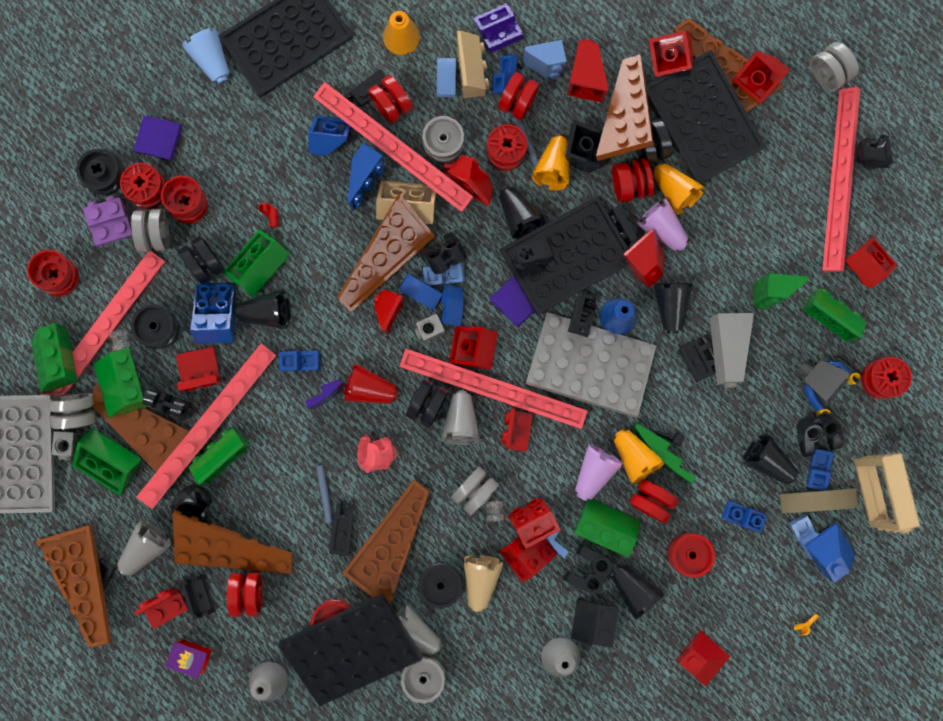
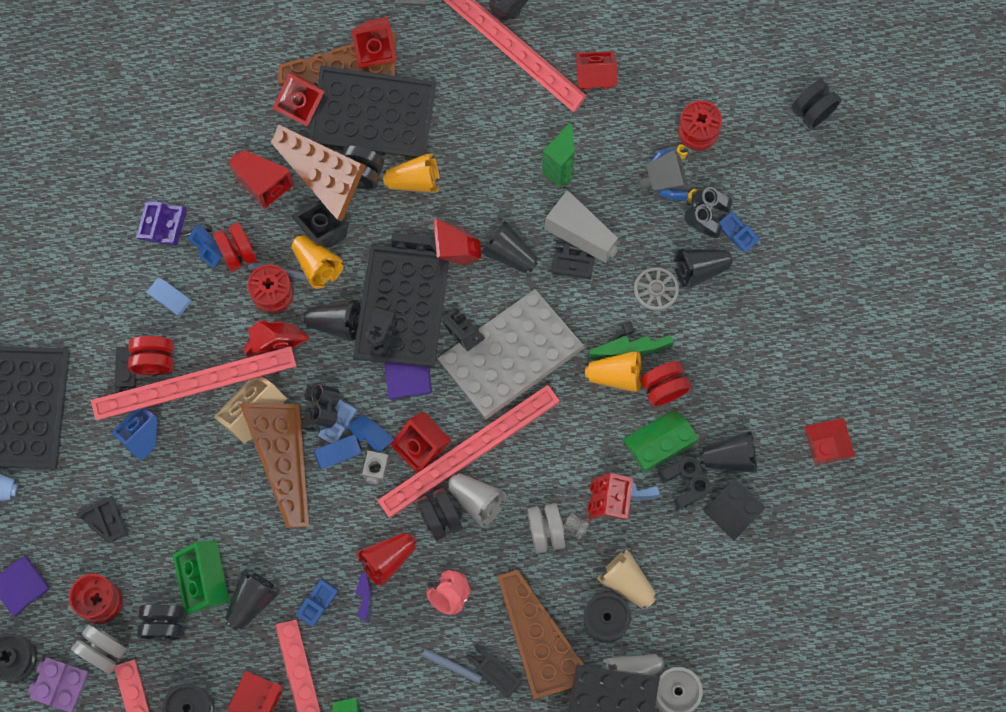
camera: 45 degrees left, 10 degrees down
(149, 194) = (66, 628): red wheel -> none
(214, 313) = (216, 648): blue slope -> none
(248, 161) = (104, 519): none -> black wing
(271, 212) = (165, 533): red arm -> none
(365, 168) = (192, 417): blue slope -> none
(387, 308) = (329, 490): red slope -> none
(401, 34) = (100, 307): light orange cone -> none
(441, 129) = (210, 334): light grey wheel -> none
(471, 65) = (175, 267): tan slope -> none
(517, 430) = (521, 456): red bracket -> none
(527, 561) = (638, 529): red bracket -> none
(546, 59) = (221, 202): medium blue slope -> none
(558, 651) = (744, 561): light grey cone -> none
(595, 472) = (605, 415): lavender cone -> none
(618, 316) = (486, 301): blue cone -> none
(637, 180) = (380, 206): red wheel -> none
(665, 225) = (438, 206): lavender cone -> none
(702, 558) = (734, 398): red wheel -> none
(726, 438) = (656, 289): none -> light grey wheel
(744, 516) = (733, 321): blue slope -> none
(803, 531) = (787, 282): medium blue slope -> none
(806, 626) = (861, 338): light orange hand -> none
(818, 500) = (763, 252): dark tan slope -> none
(831, 553) = (814, 272): blue slope -> none
(834, 315) = (617, 128): green slope -> none
(898, 491) = (798, 178): tan window -> none

